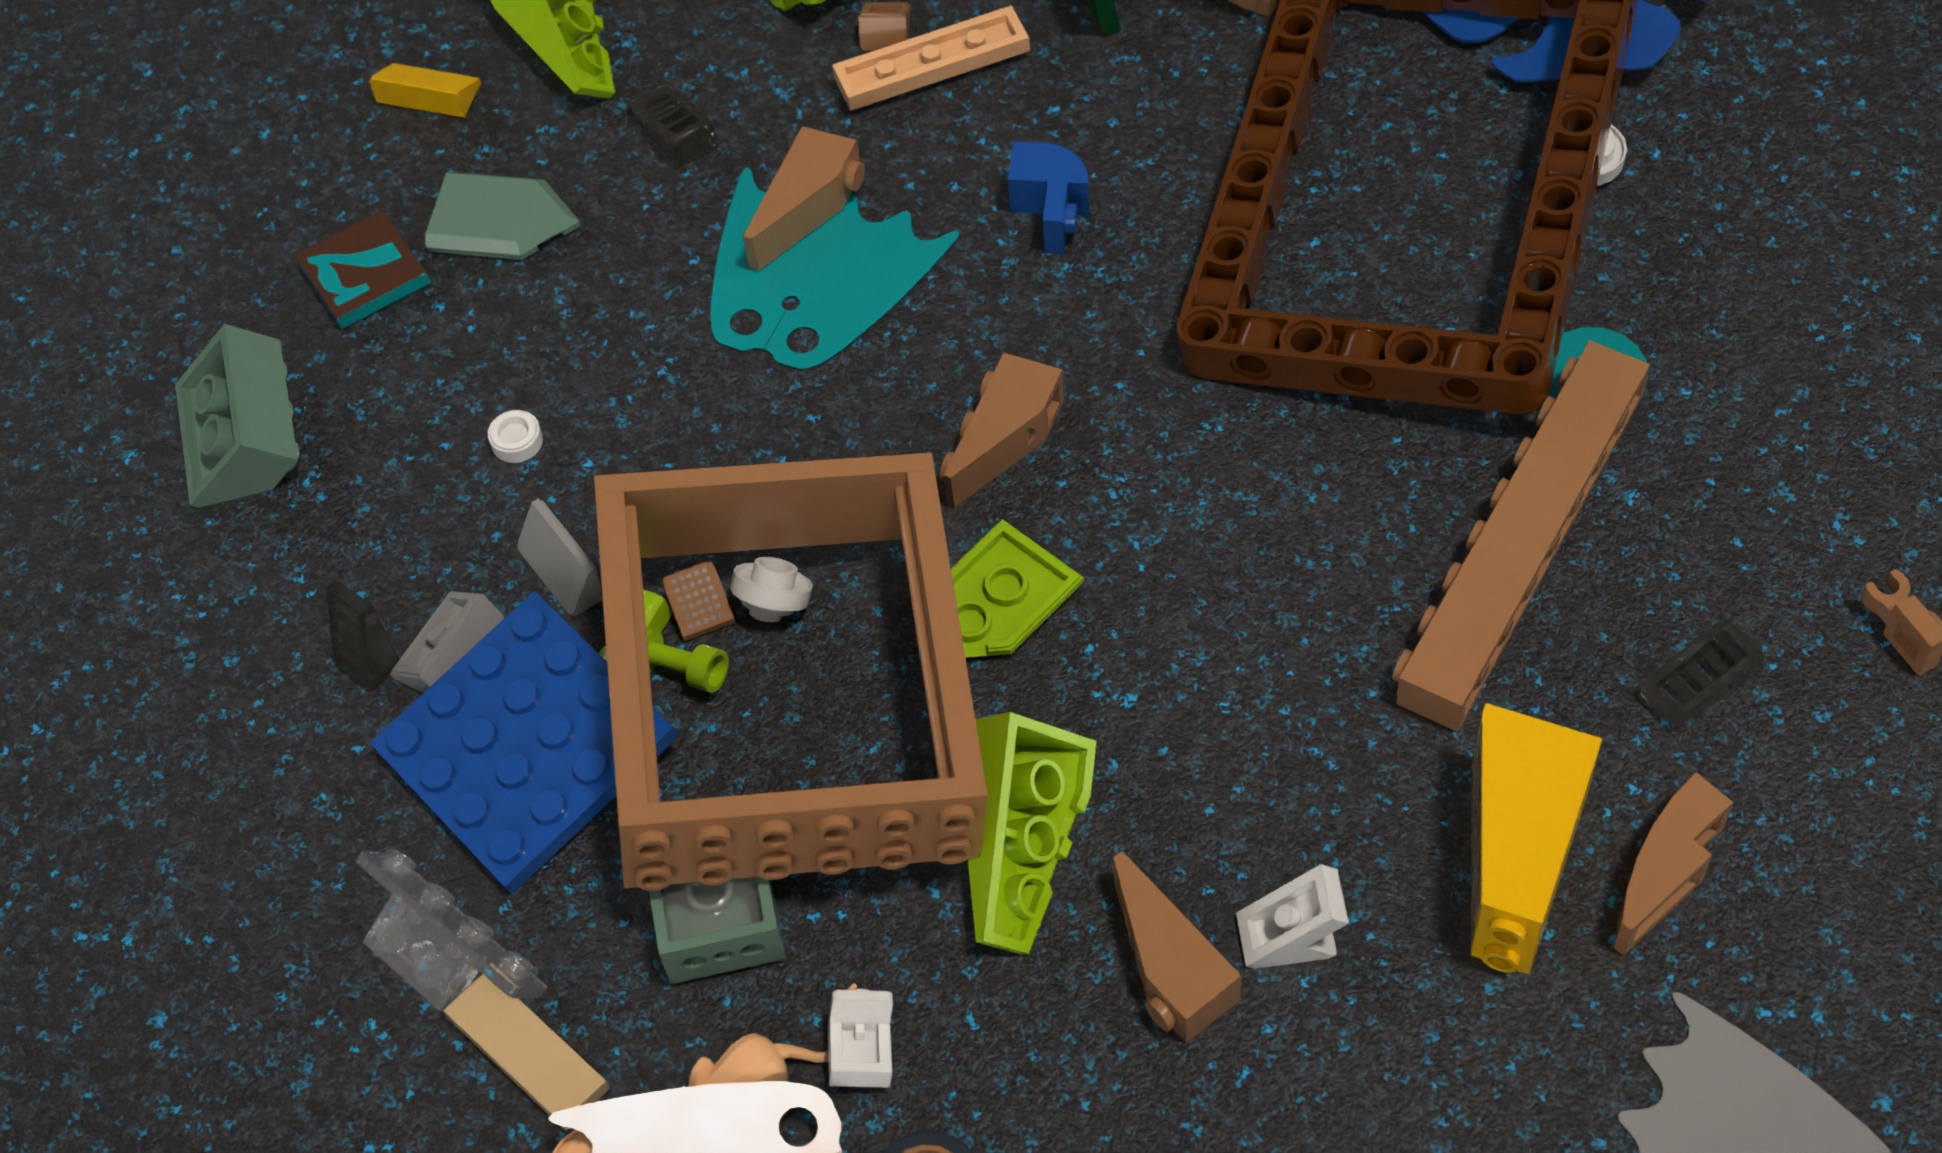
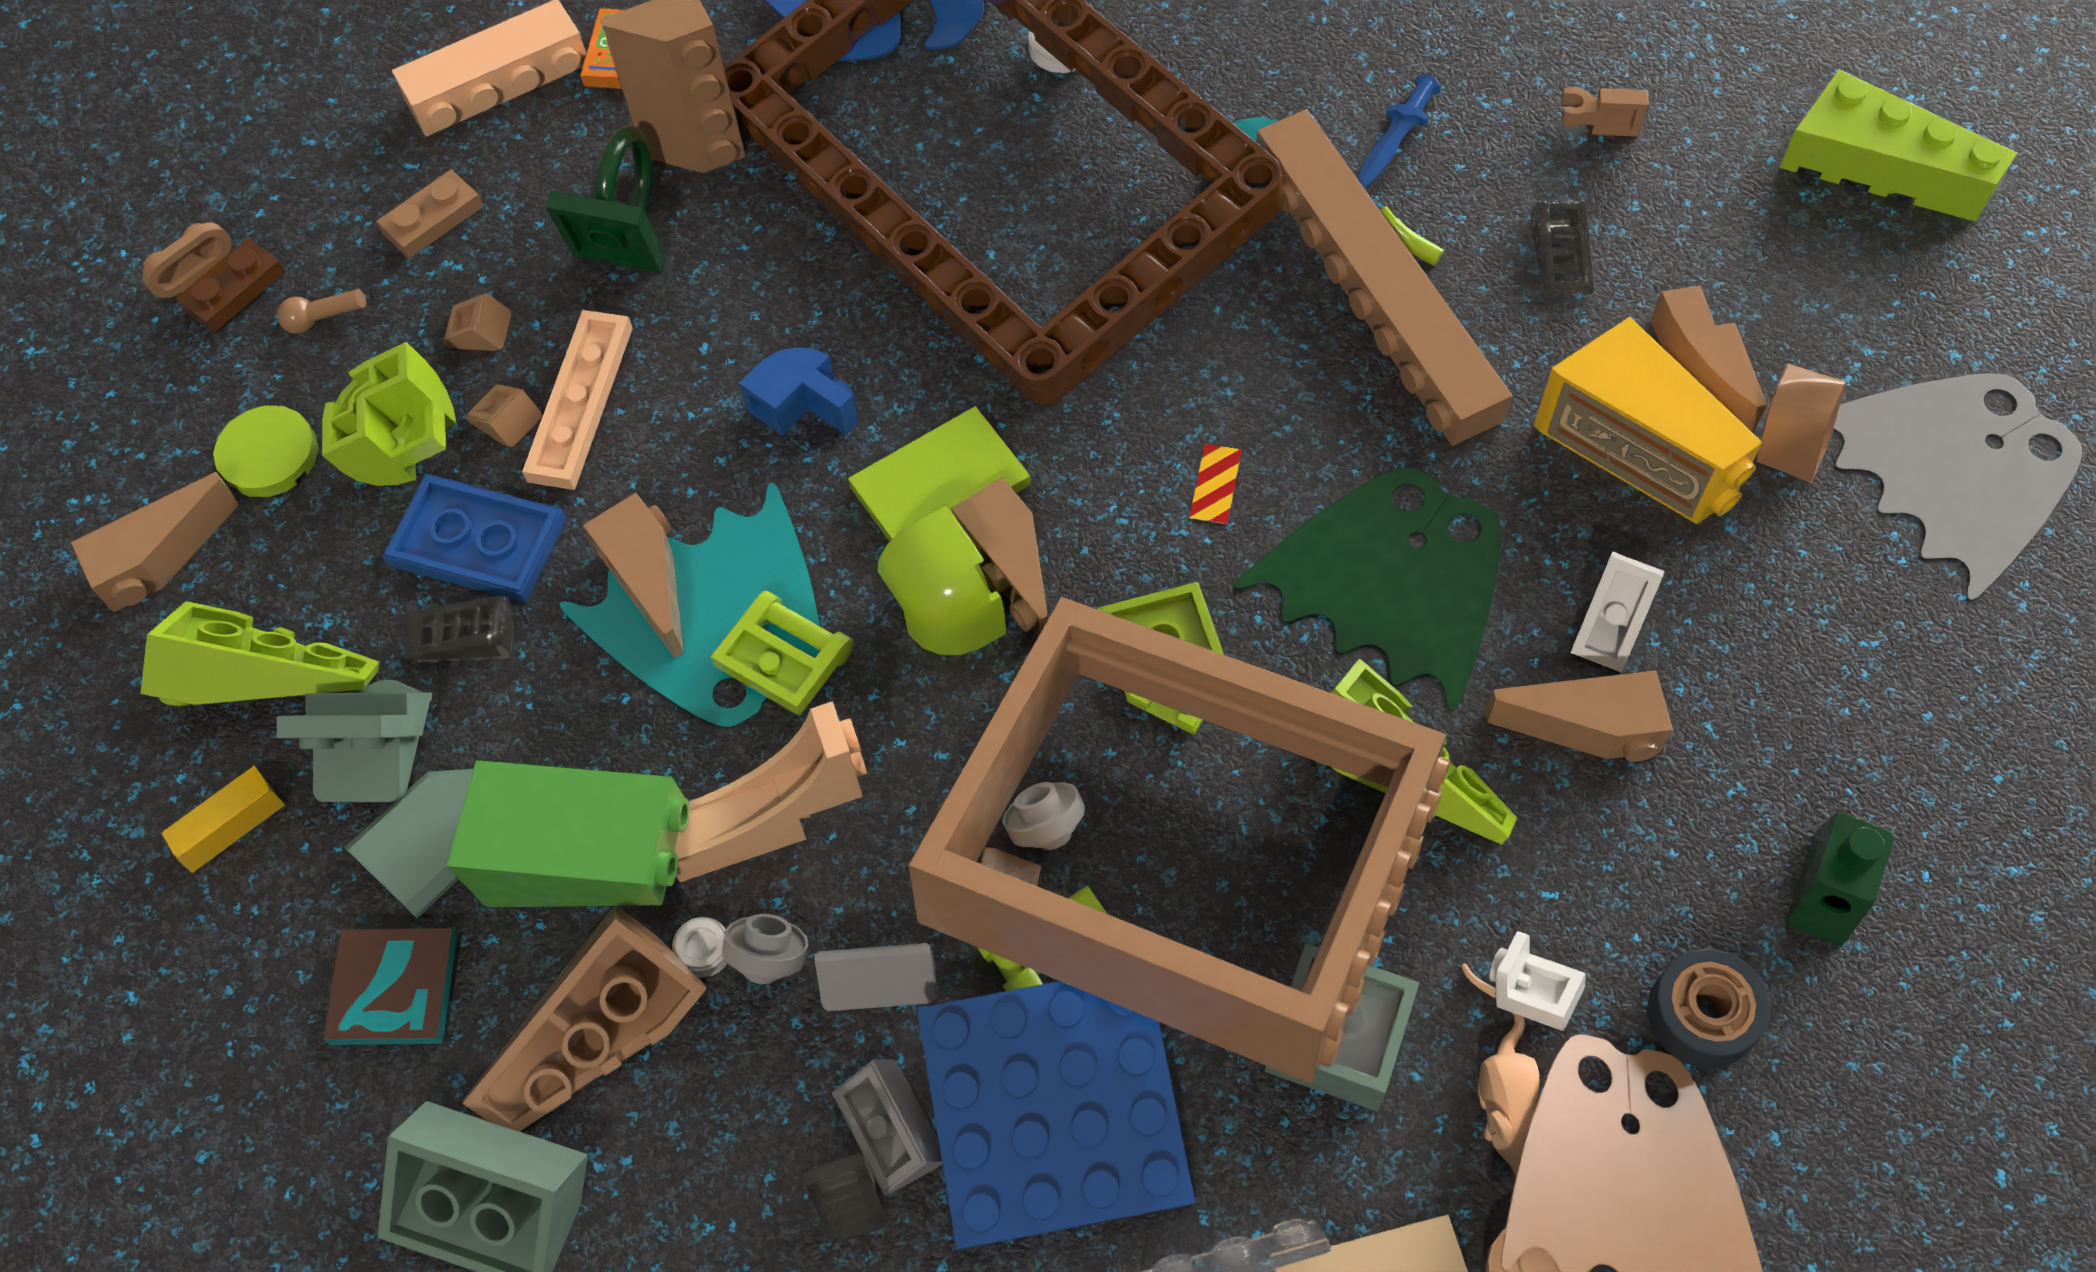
camera: 60 degrees left, 5 degrees up
(411, 399) = (600, 1010): none -> medium nougat wedge
(523, 278) = (567, 836): none -> bright green slope
(531, 468) = (764, 947): none -> light grey plate
(536, 117) = (360, 740): none -> sand green piece
(642, 393) = (768, 803): none -> light nougat arch
(762, 79) = (475, 537): none -> blue tile
(781, 328) = (774, 665): none -> lime plate
(923, 388) = (941, 586): none -> lime brick
(1047, 330) = (936, 472): none -> lime tile
(1197, 735) = (1380, 590): none -> dark green piece
(1205, 540) = (1215, 484): none -> sticker
(1599, 541) = (1414, 243): none -> lime bar
(1635, 970) = (1800, 421): none -> medium nougat piece
(1751, 464) = (1403, 119): none -> blue sword

